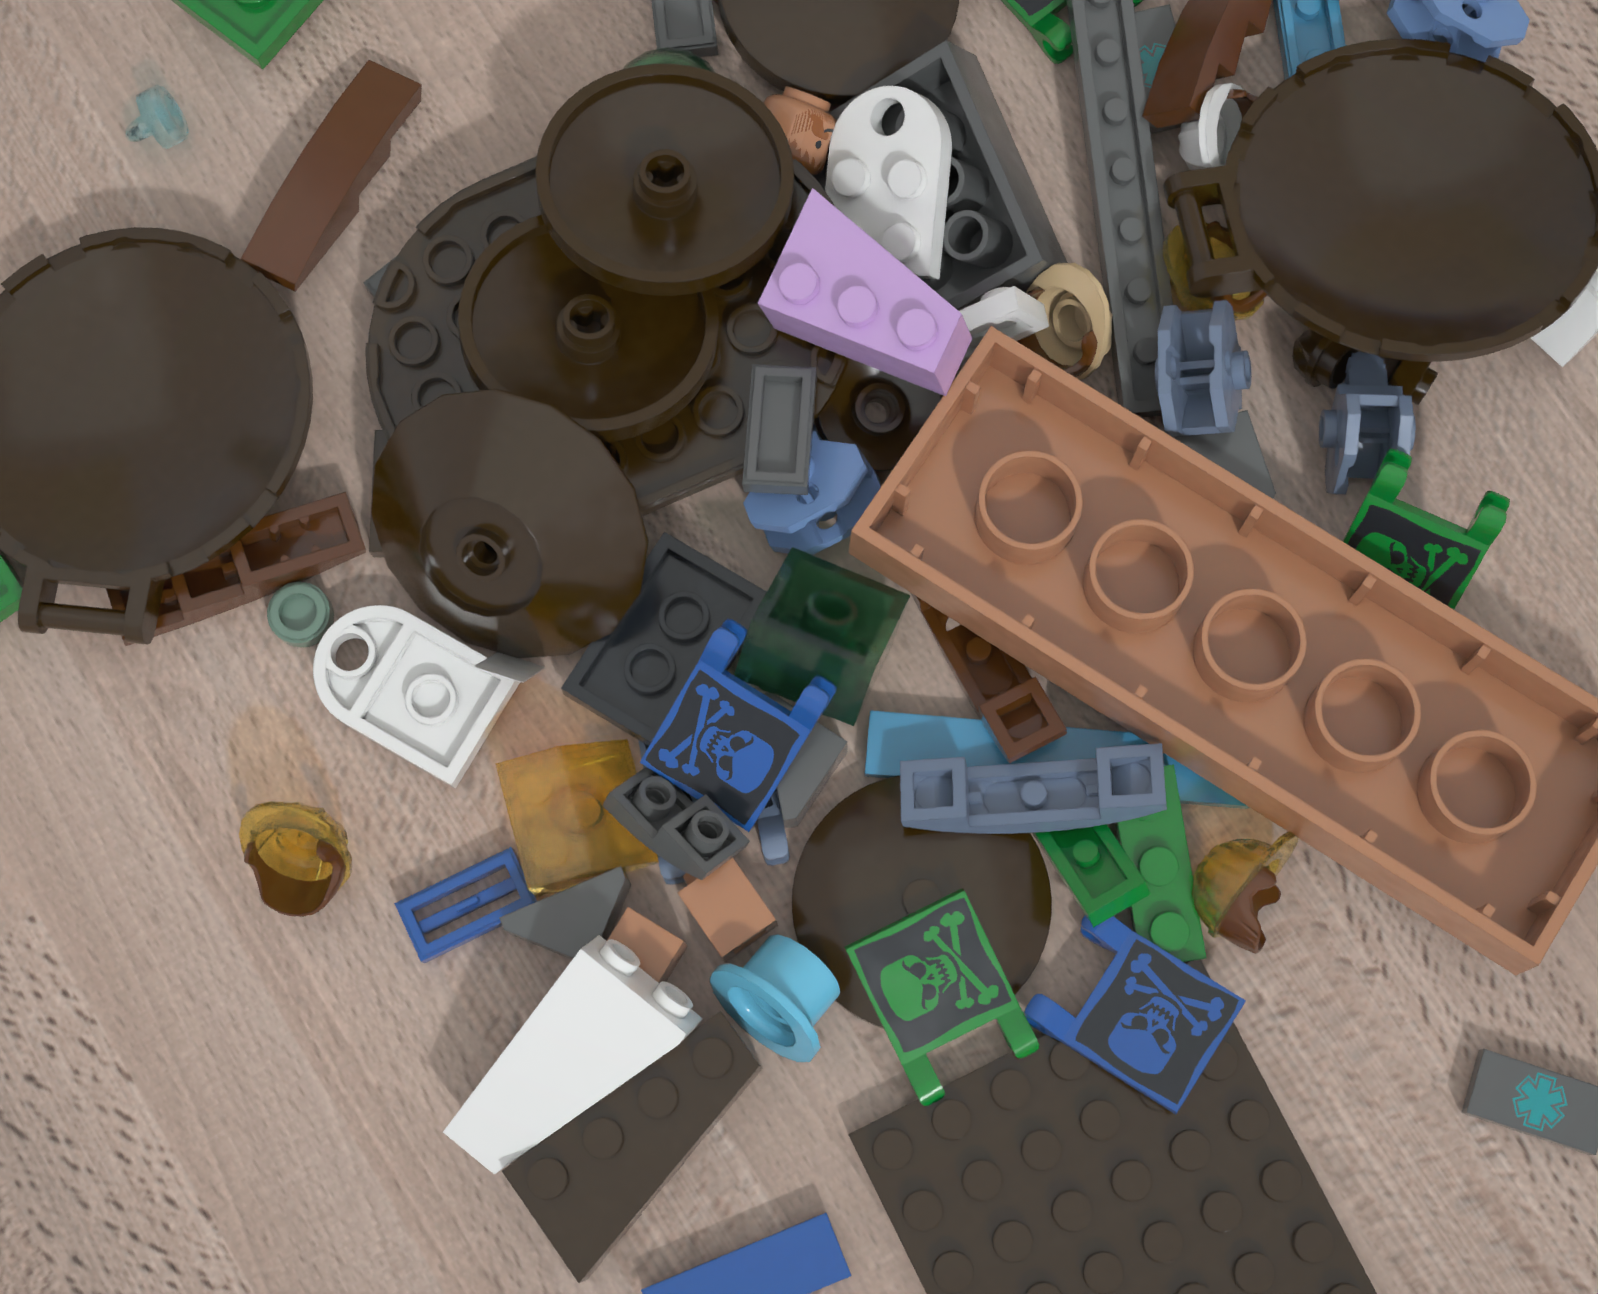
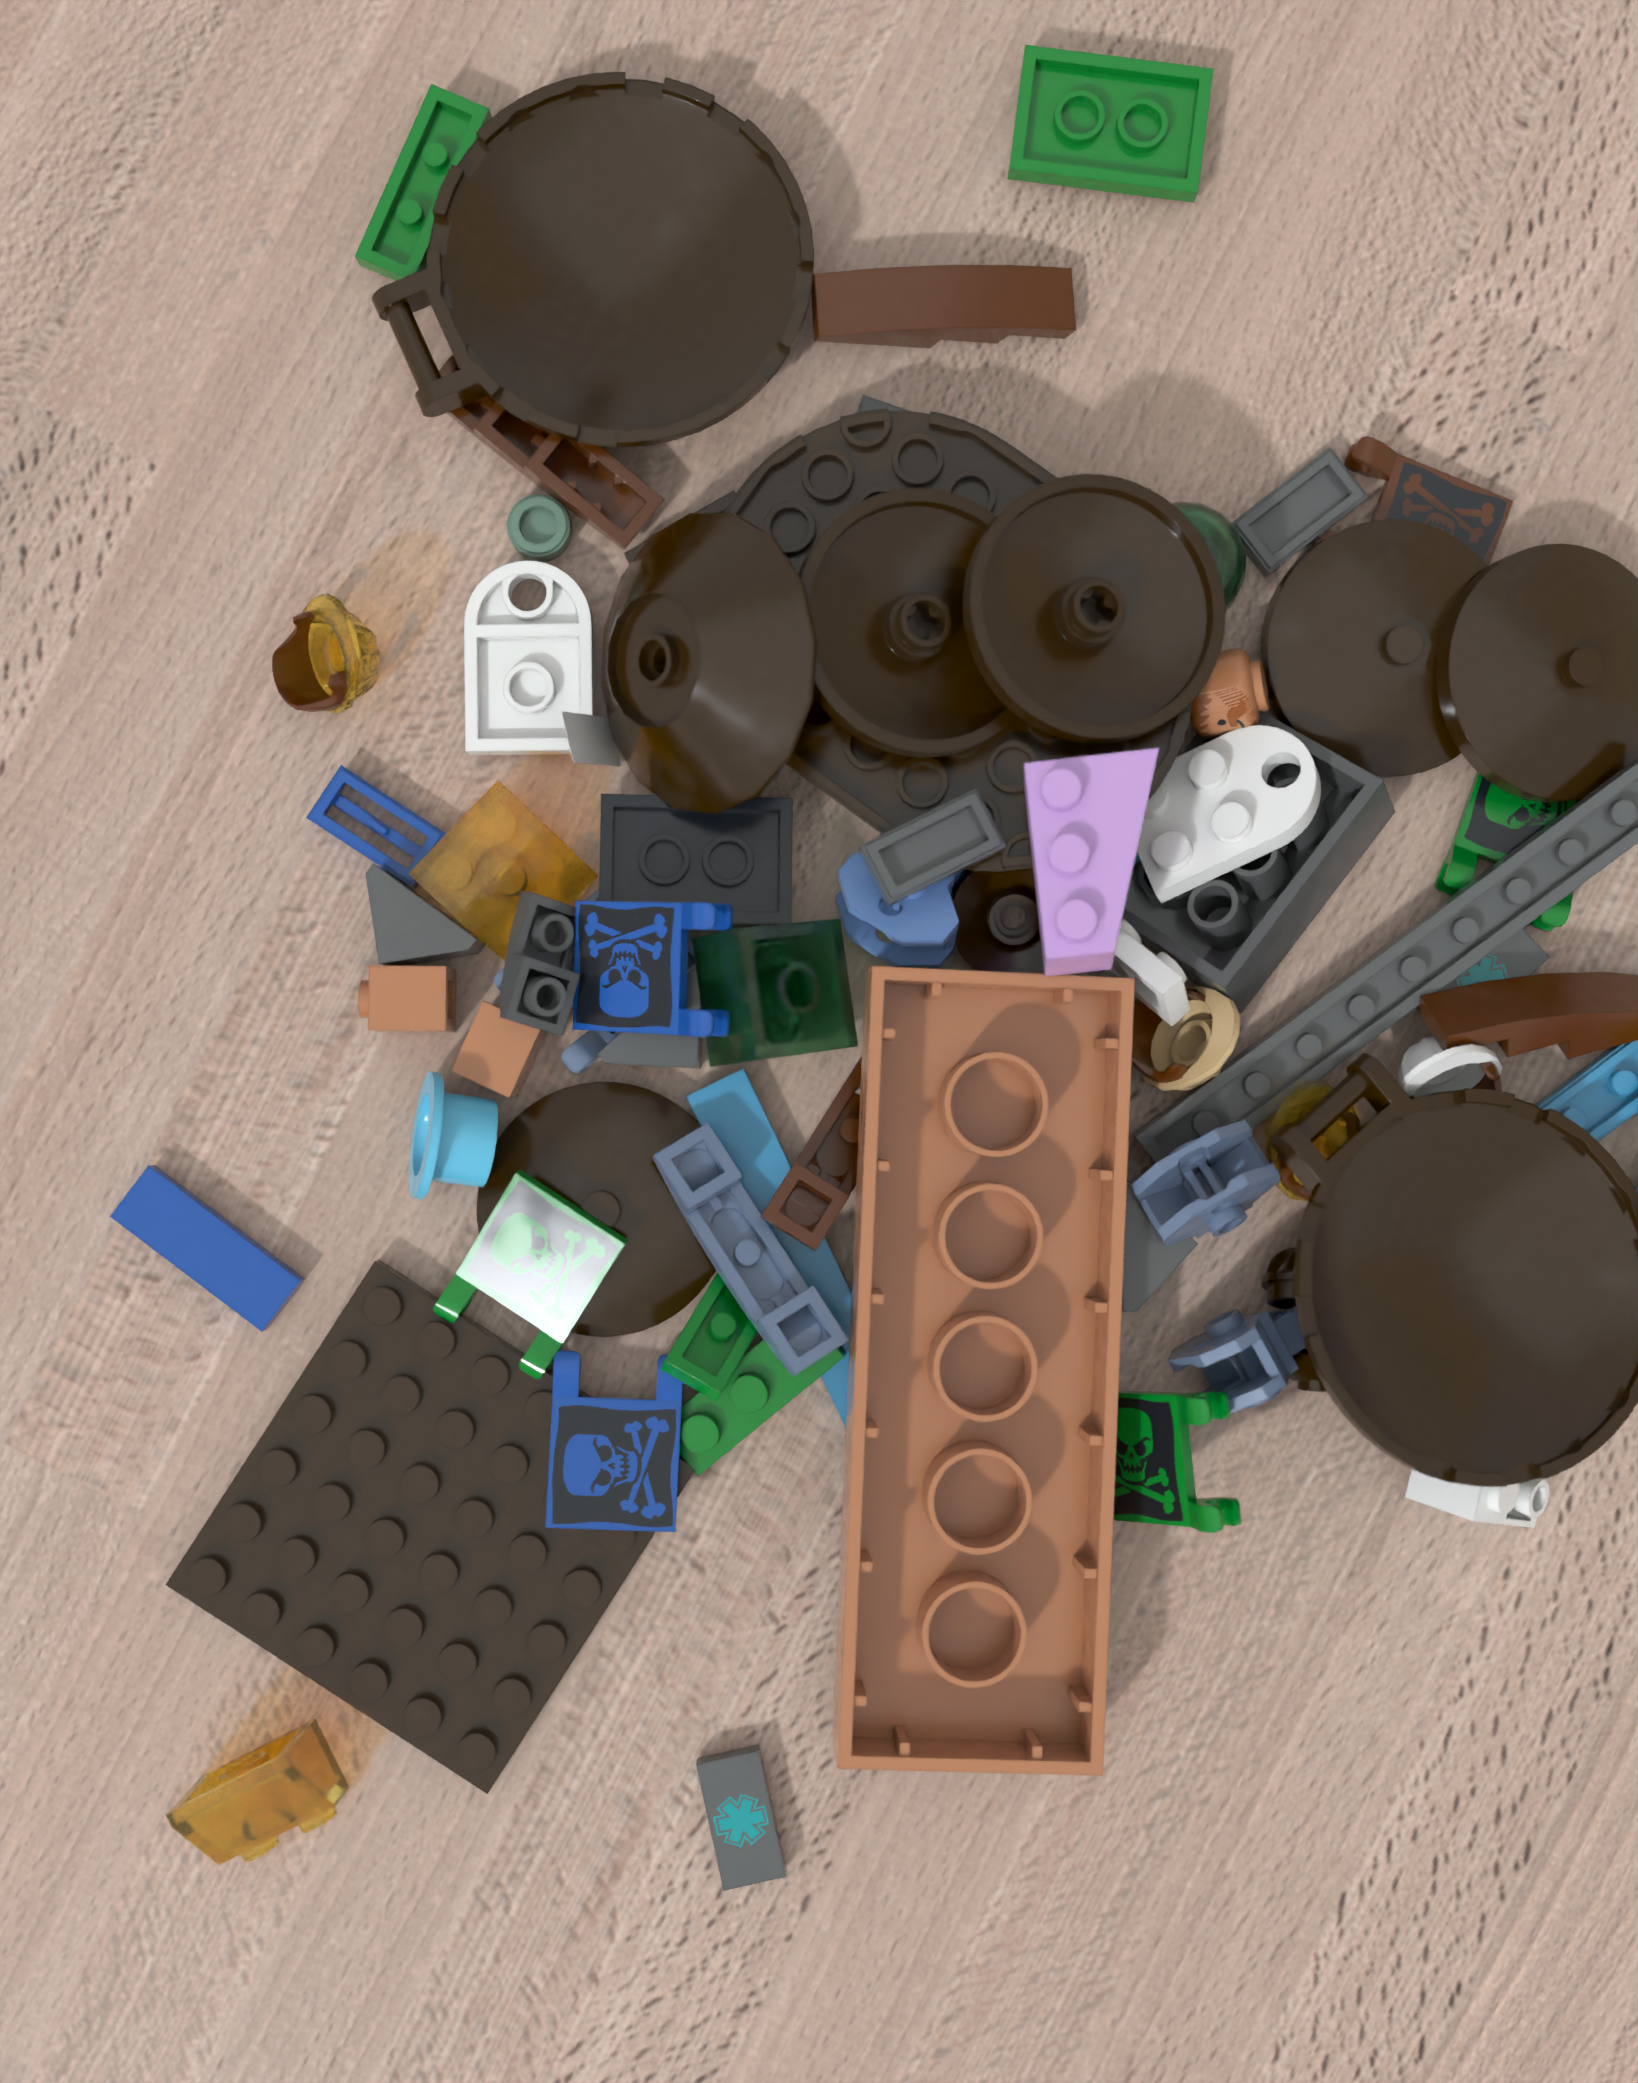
camera: 55 degrees right, 10 degrees up
(158, 118) = (903, 115): clear light blue tile -> none
(575, 1048) = (301, 999): white slope -> none
(618, 1154) = (246, 1083): dark brown wedge -> none
(1236, 884) = (768, 1465): clear yellow piece -> none

